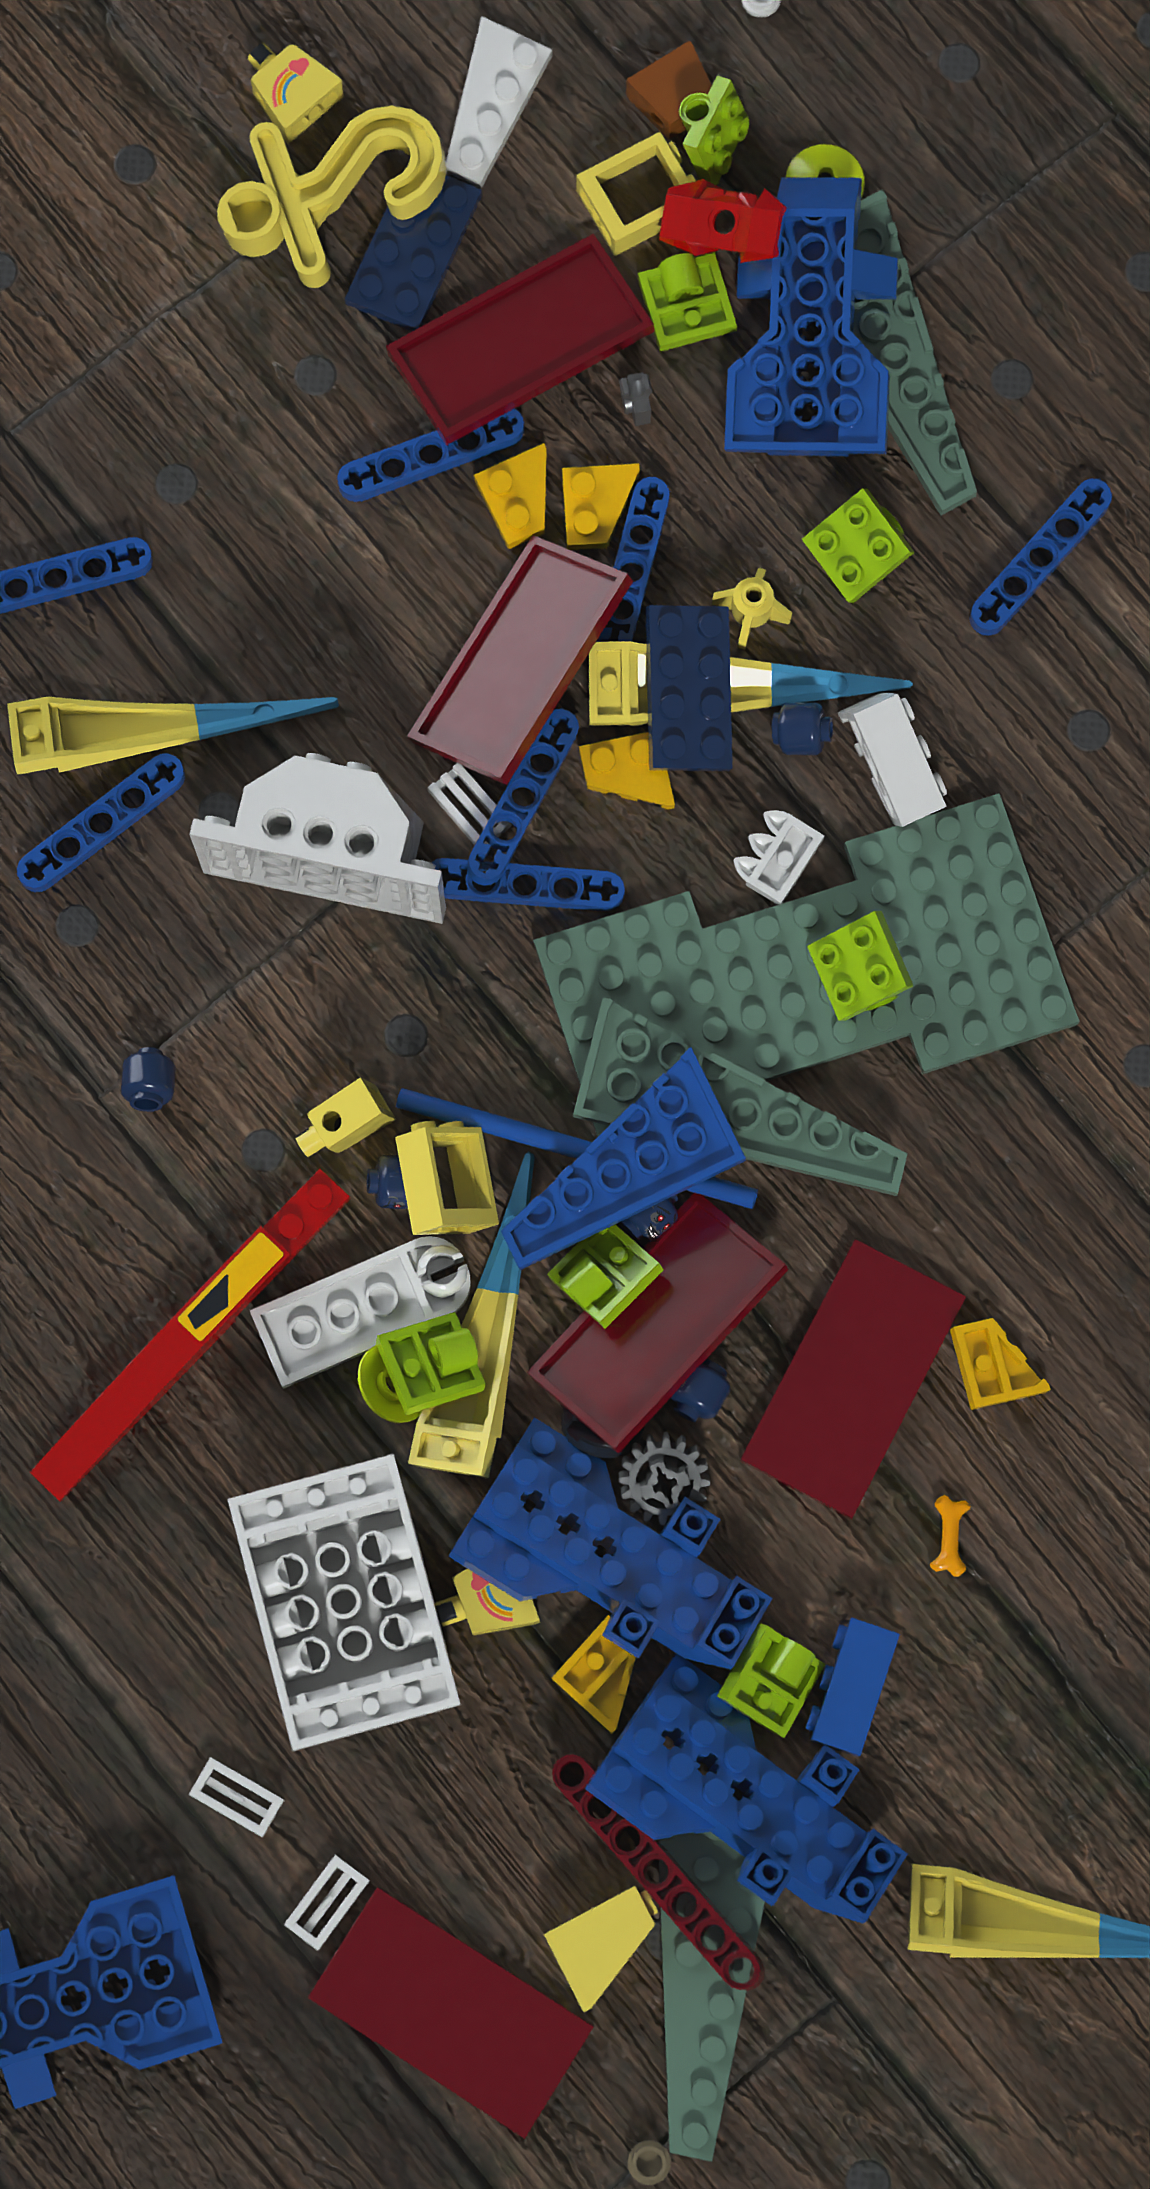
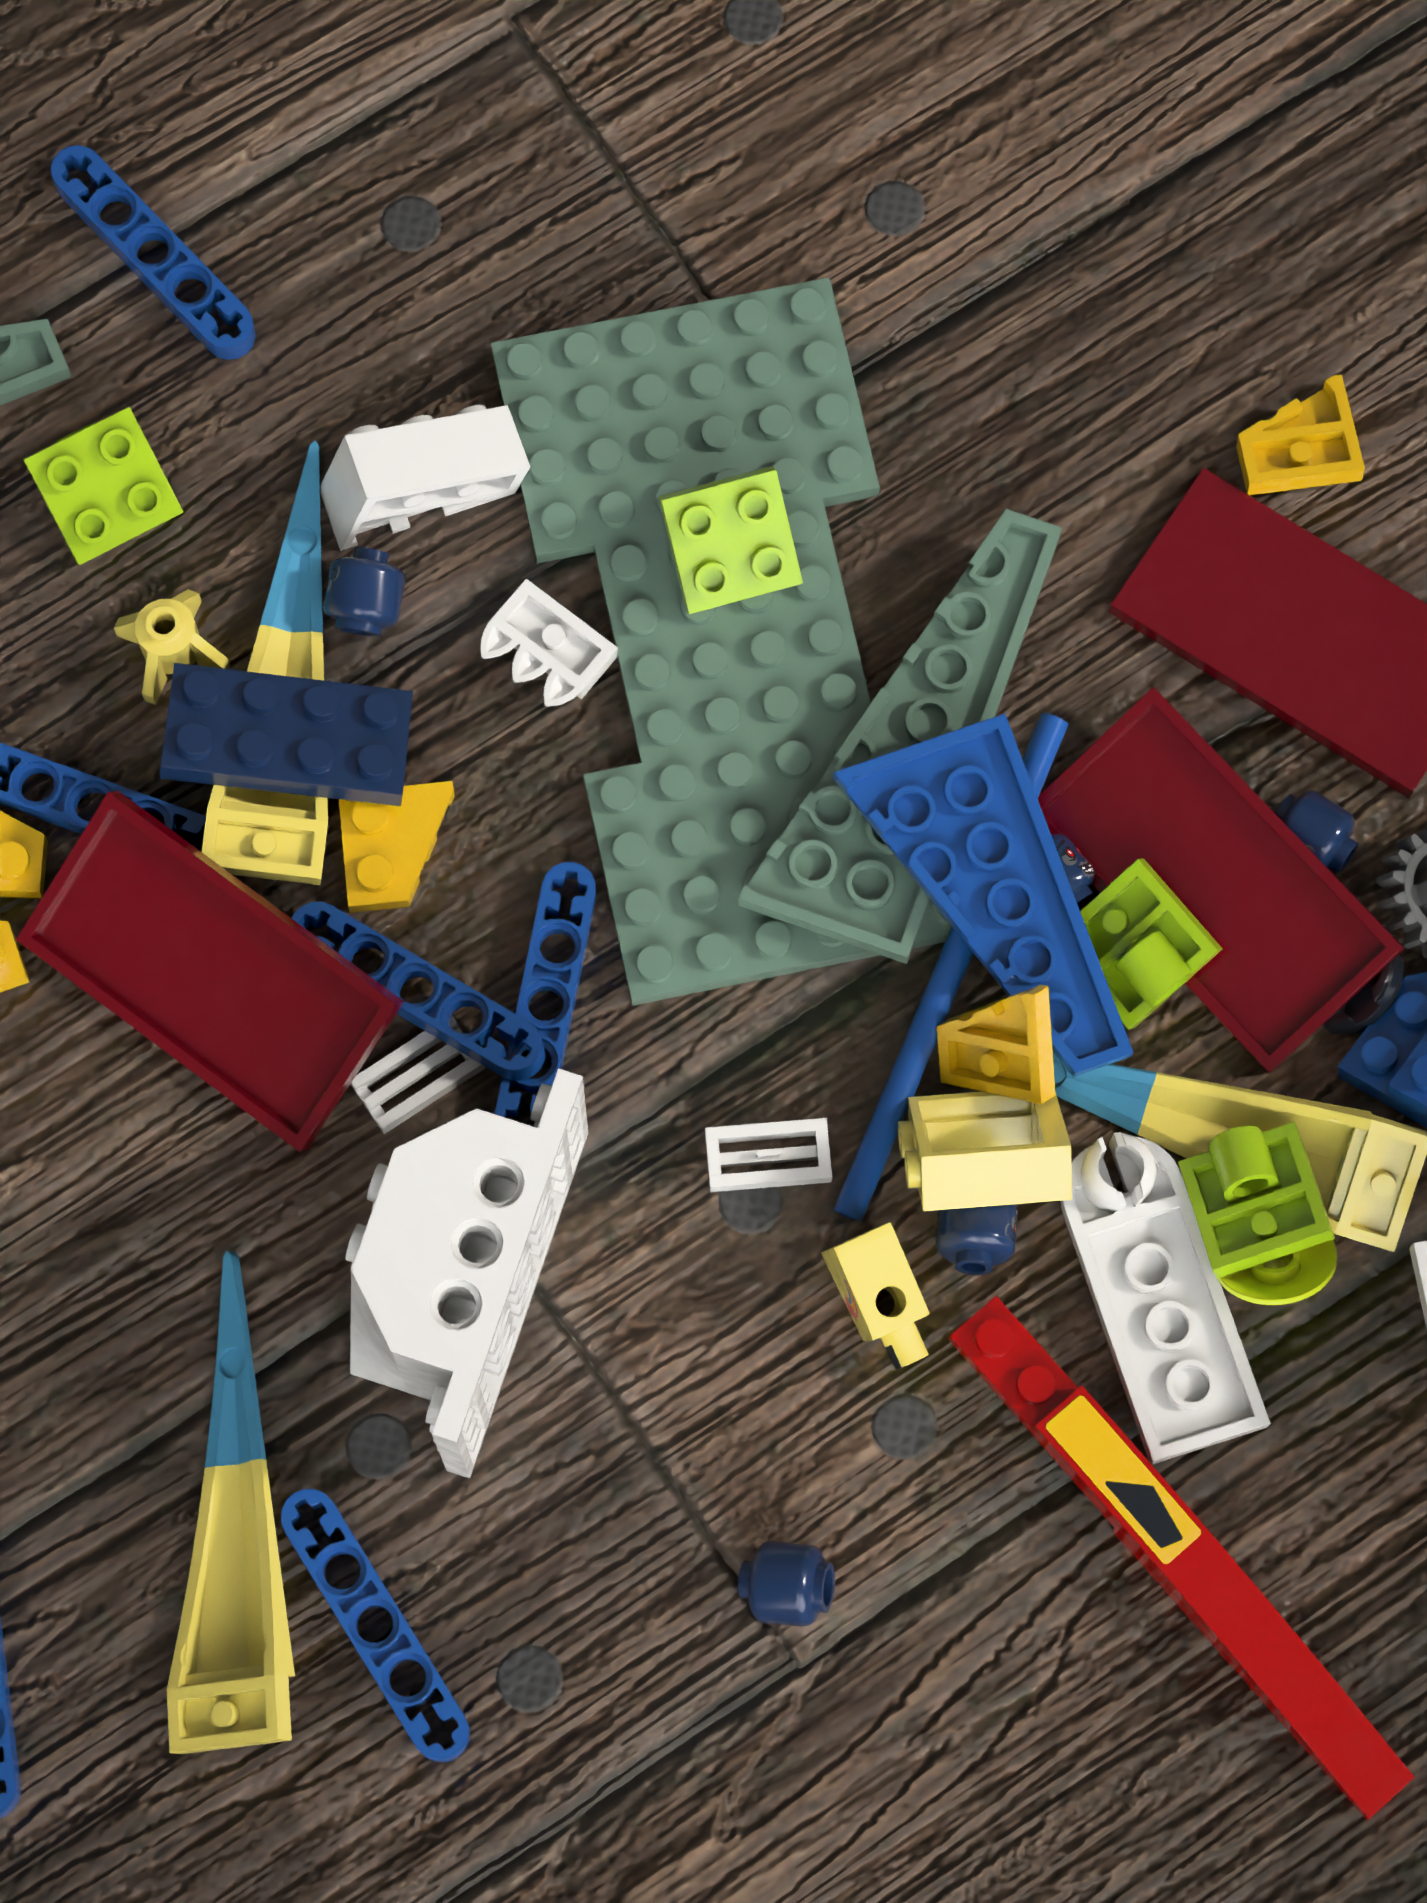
camera: 85 degrees left, 5 degrees down
(443, 1076) = (770, 1178): none -> white tile
(516, 1183) = (1001, 1048): none -> yellow wing

